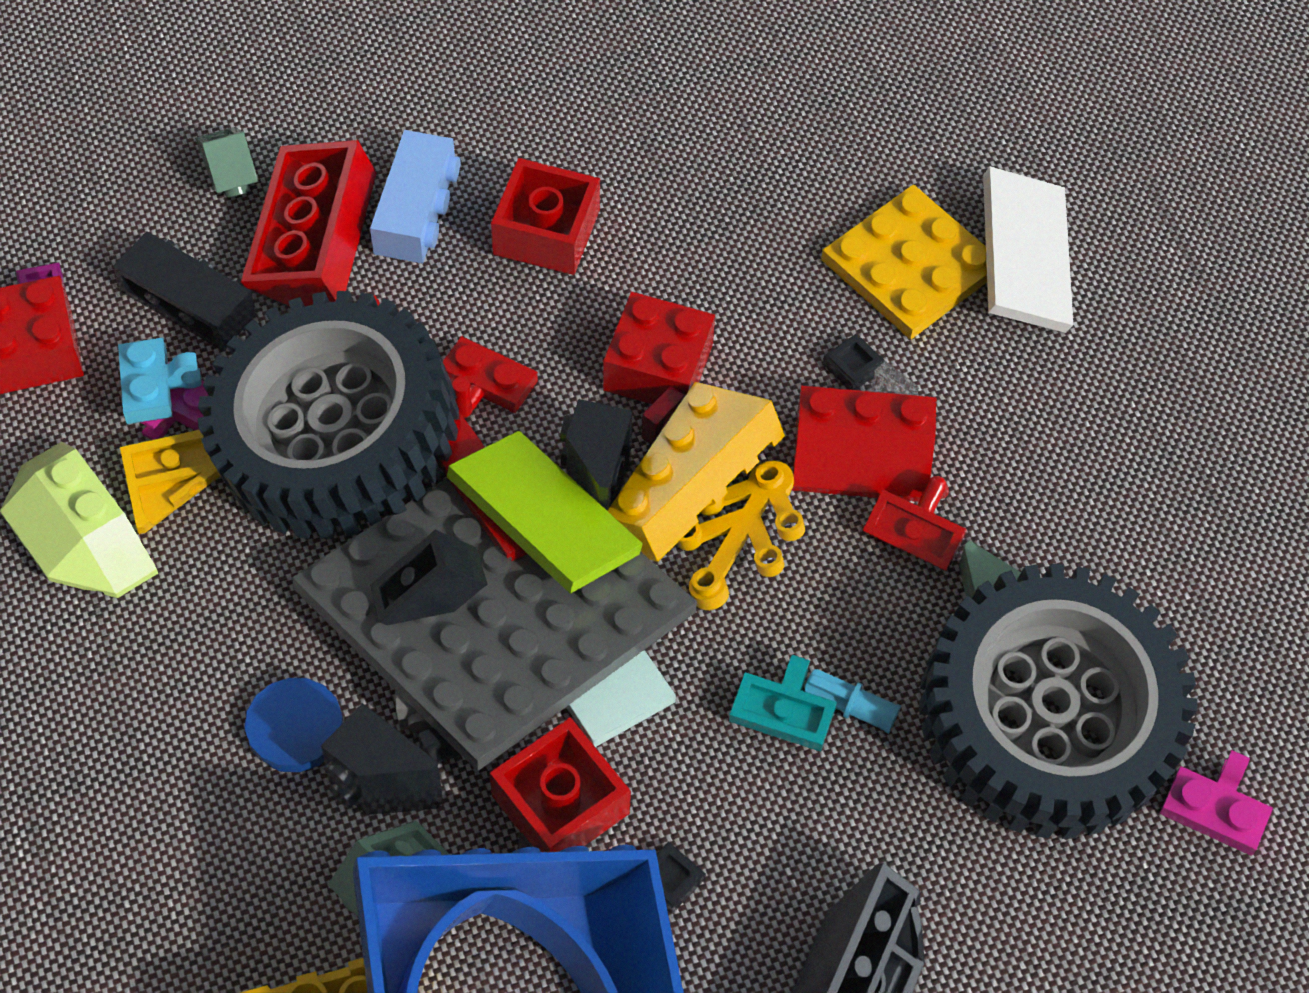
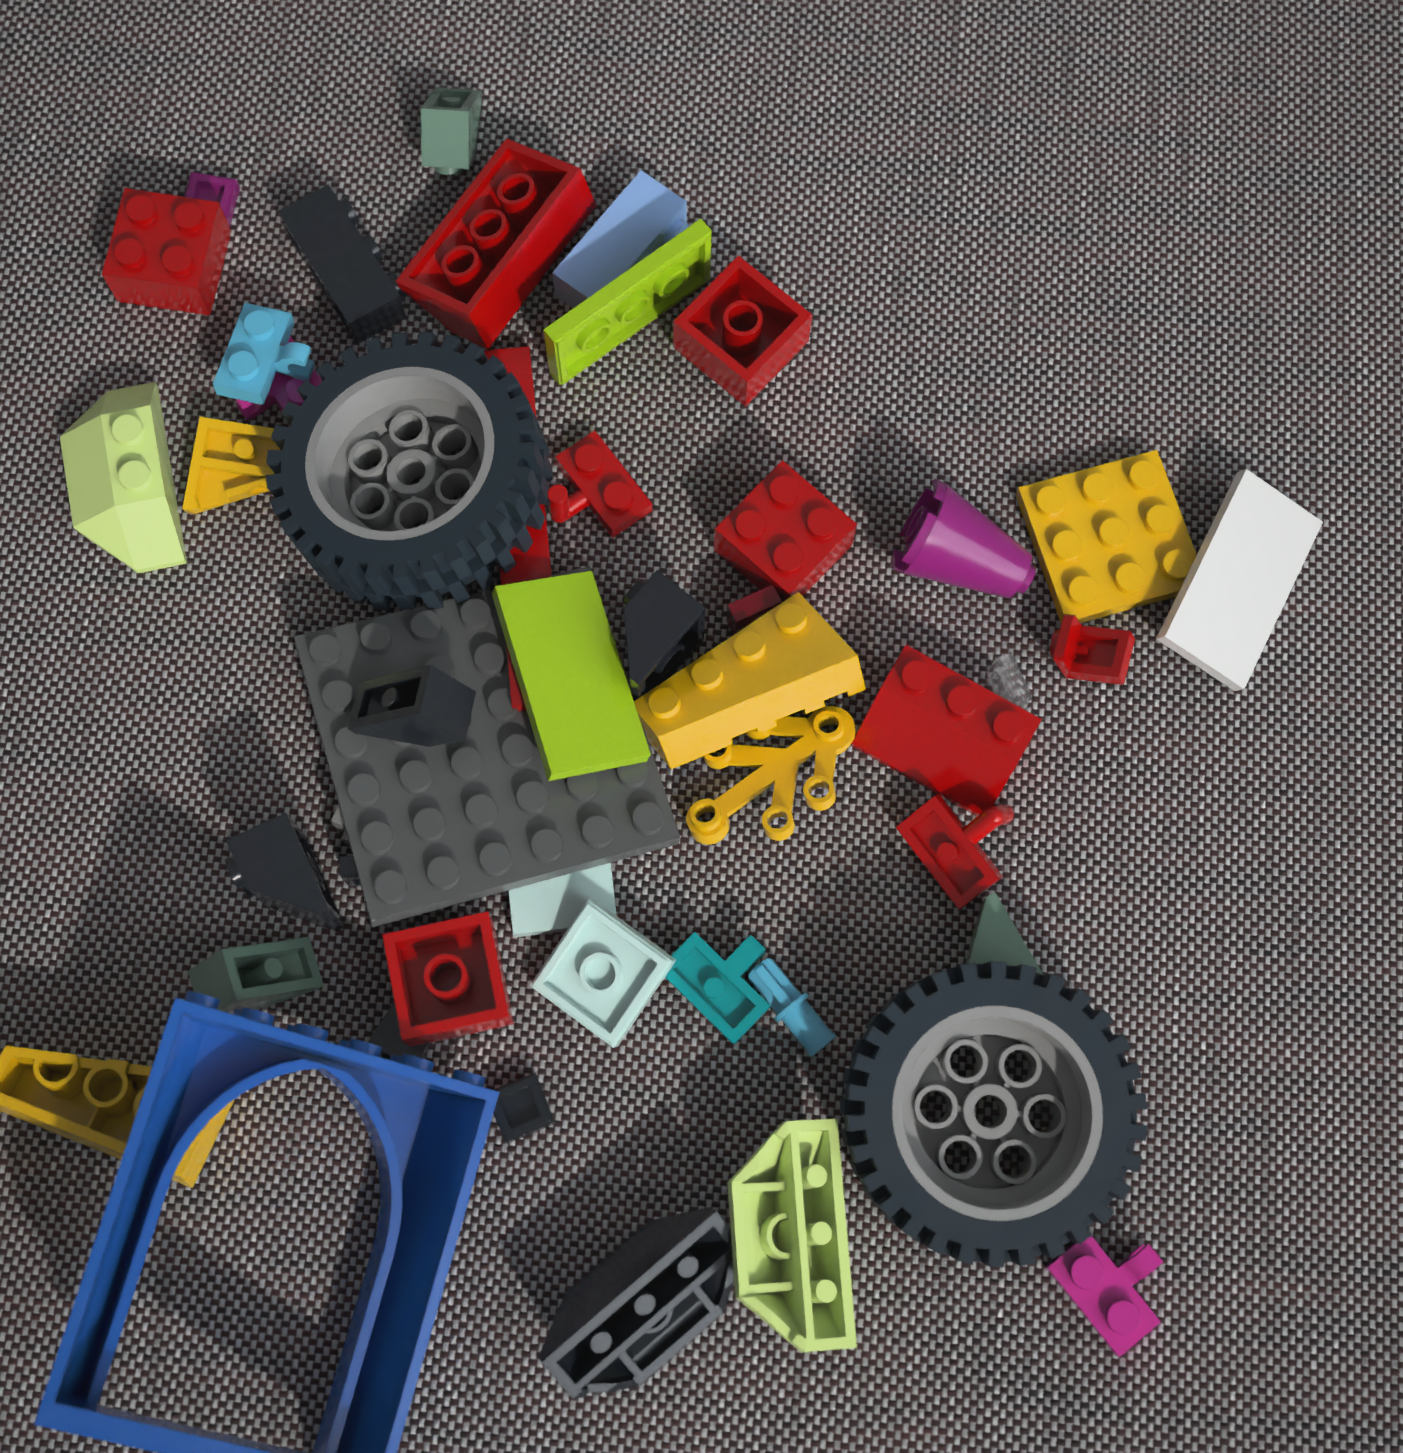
camera: 25 degrees right, 15 degrees up
(291, 723) = (238, 783): blue tile -> none
(445, 227) = (629, 303): none -> lime tile
(685, 737) = (602, 972): none -> light aqua tile
(801, 304) = (960, 546): none -> magenta cone
(853, 362) = (987, 630): black tile -> none
(944, 343) = (1091, 651): none -> red bracket
(955, 859) = (794, 1236): none -> yellowish green wedge

